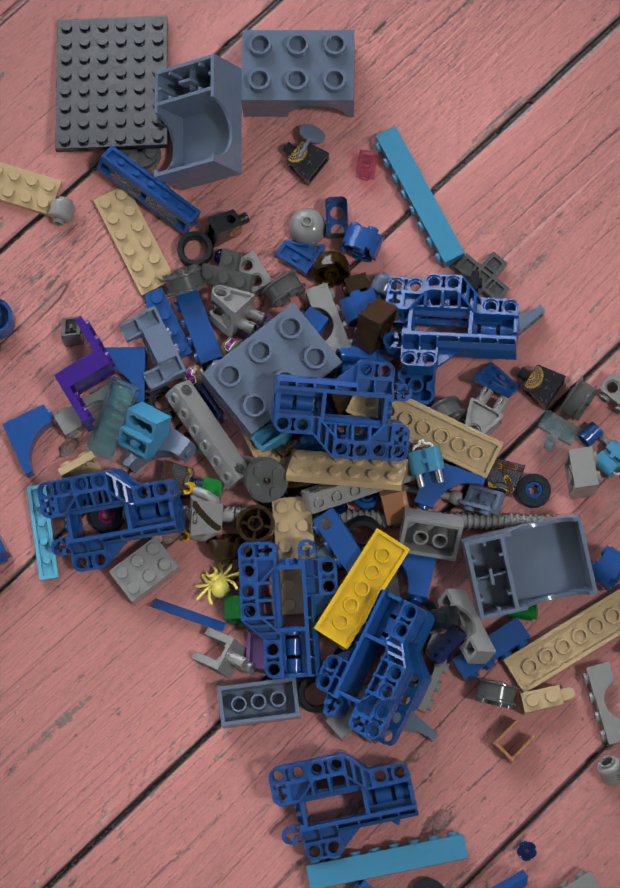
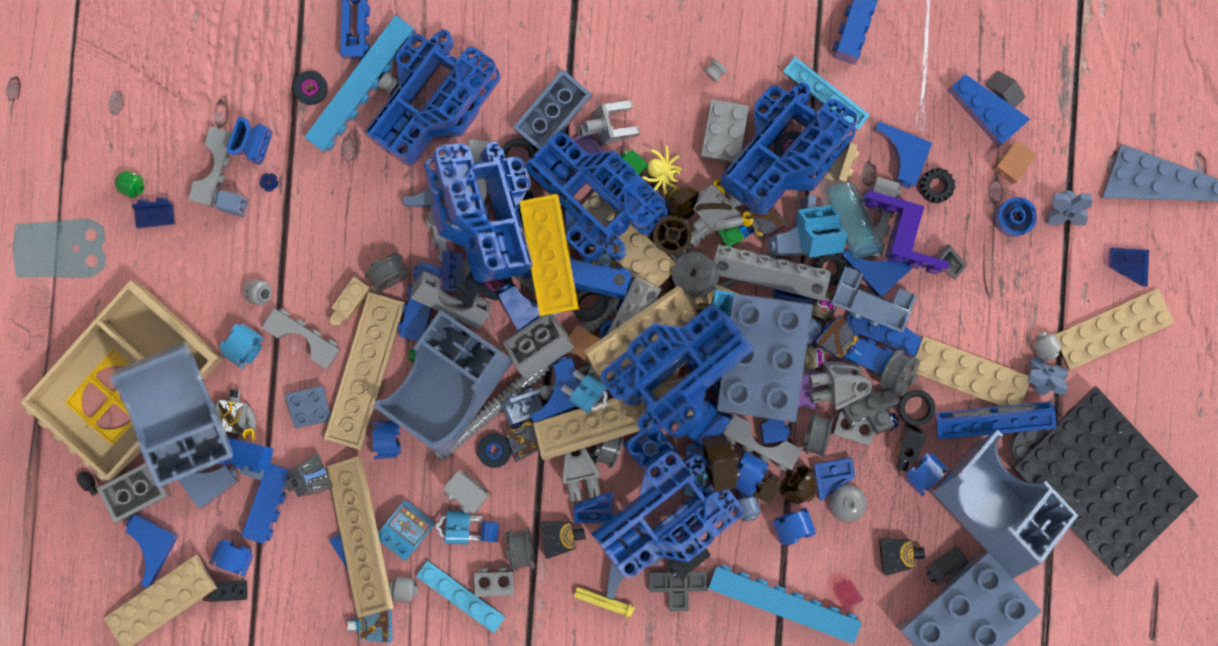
camera: 130 degrees right, 10 degrees up
(29, 404) = (948, 185): none -> black tyre
(83, 188) = (1046, 377): none -> sand blue plant
(107, 624) = (715, 70): none -> light grey wheel
(188, 614) = (663, 130): blue sticker -> none
(205, 341) = (839, 340): none -> torso
(232, 195) = (926, 474): none -> blue brick
(279, 125) = (945, 565): none -> black bracket
(310, 134) = (913, 579): sand blue piece -> none
(341, 202) = (827, 532): blue piece -> none
(363, 841) = (389, 83): none -> light grey wheel
(503, 752) = (334, 247): nougat piece -> none
(550, 312) = (604, 602): none -> light yellow axle
(558, 429) = (516, 514): clear light blue plate -> none
(572, 857) = (231, 203): none -> sand blue brick

